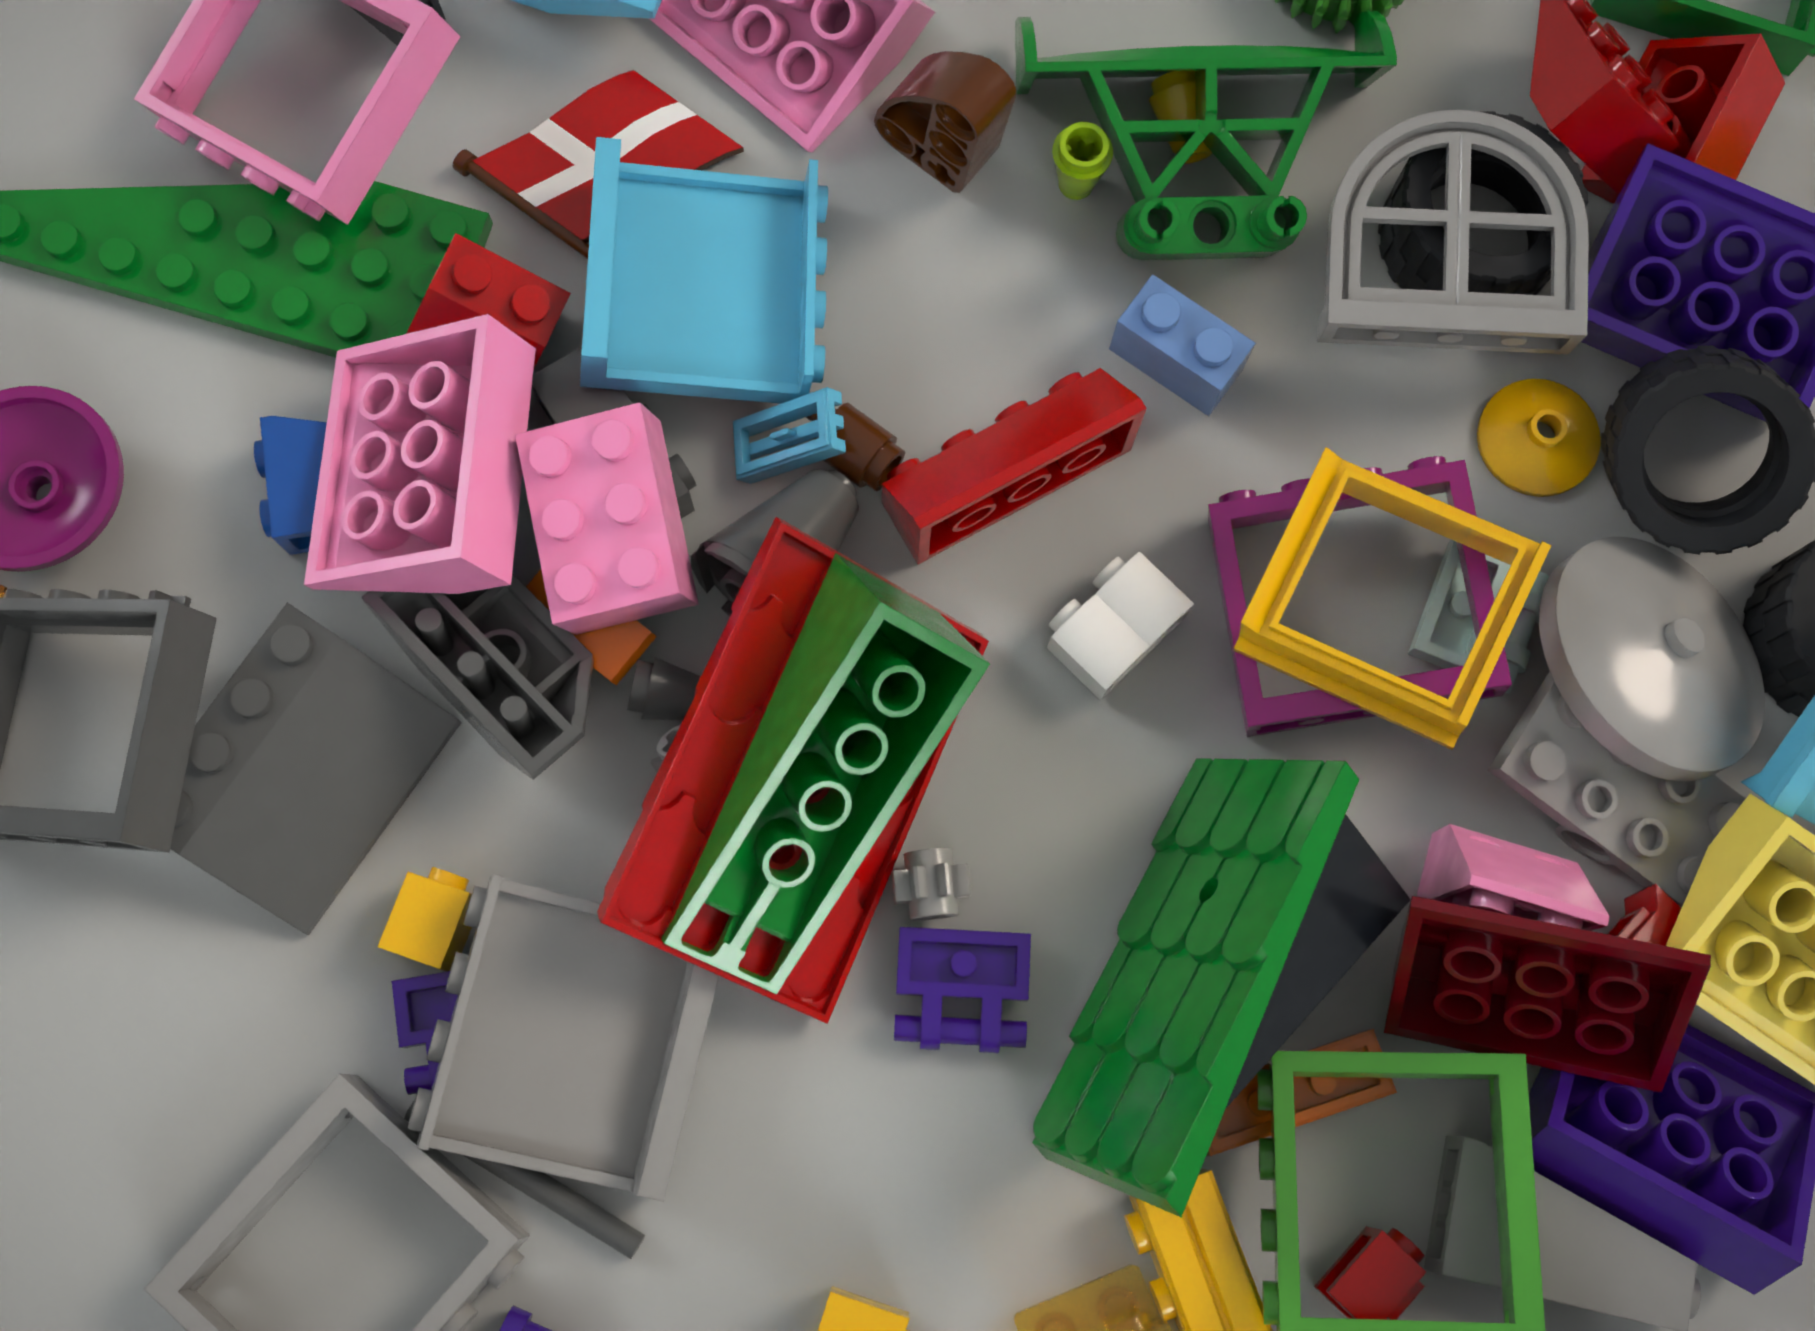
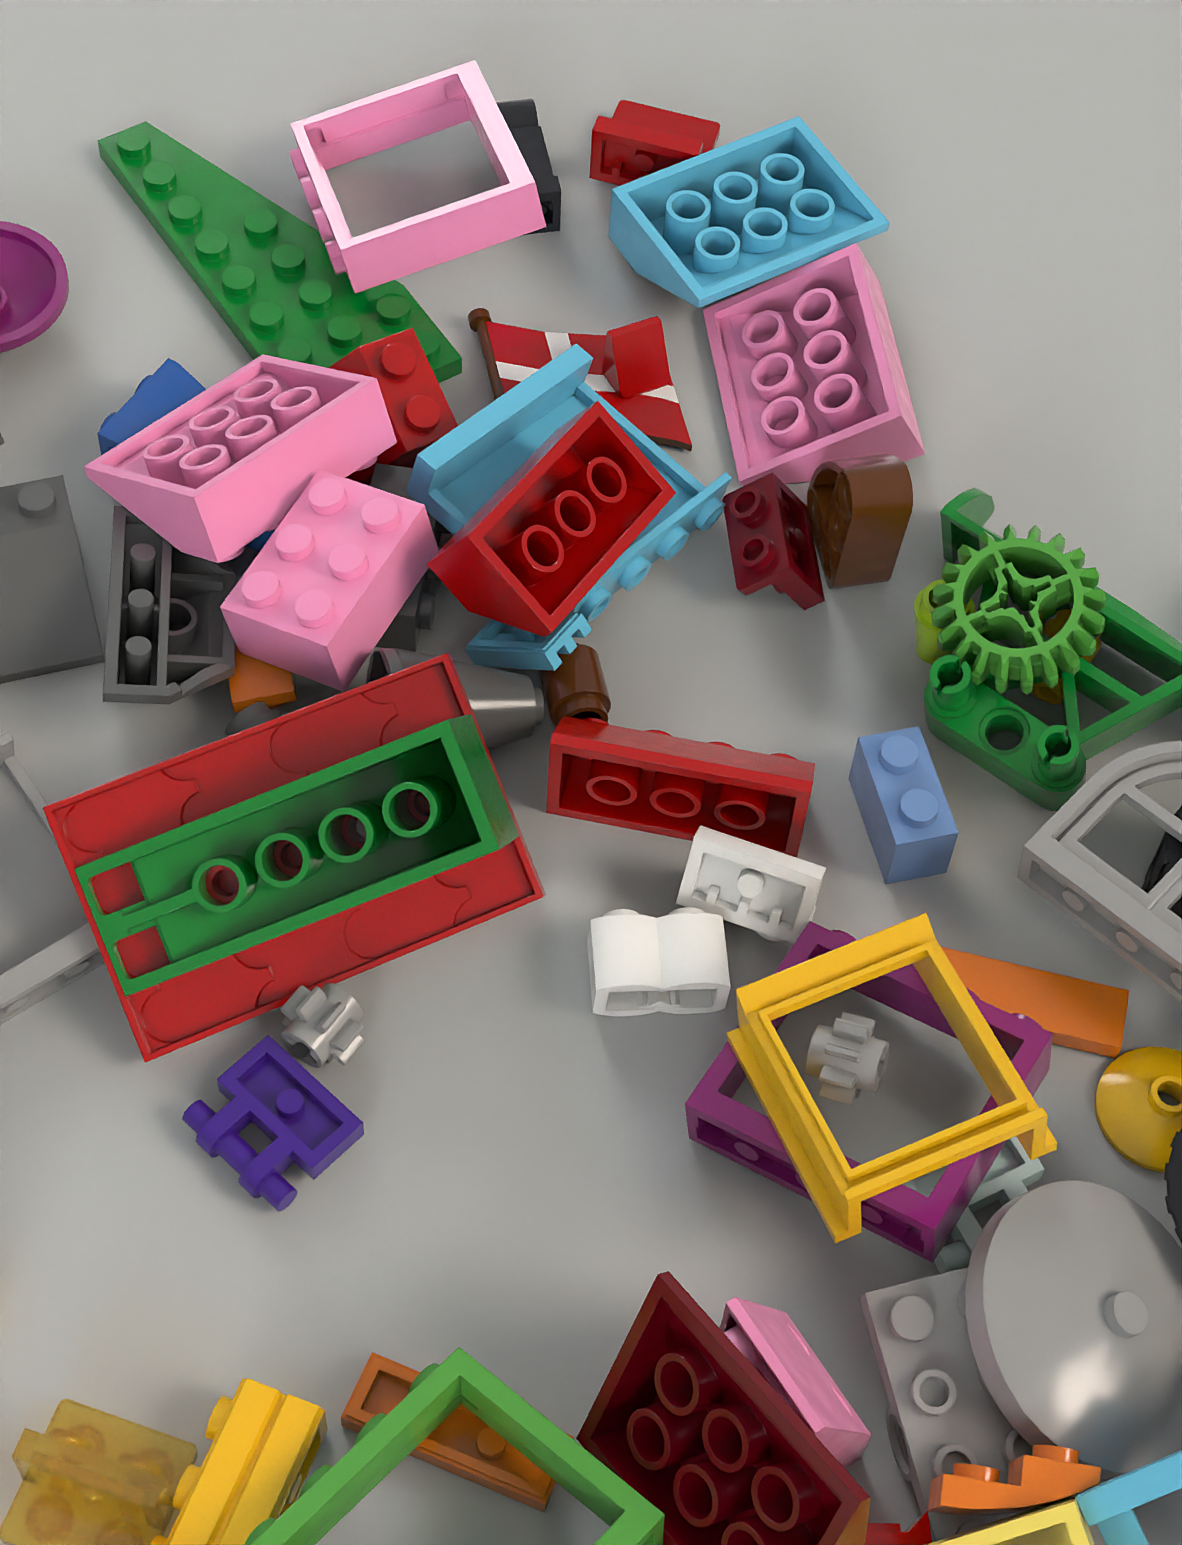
camera: 40 degrees right, 20 degrees down
(635, 103) = (636, 358): none -> red slope
(739, 327) = (554, 525): none -> red slope
(889, 191) = (772, 541): none -> dark red bracket
(1141, 511) = (750, 885): none -> white bracket
(1188, 131) = (1061, 583): none -> bright green gear
(1218, 960) = (542, 1237): green piece -> none
(1349, 603) = (847, 1058): none -> light grey gear
(1395, 425) = (1073, 1009): none -> orange tile
(1720, 821) = (1032, 1482): none -> orange slope

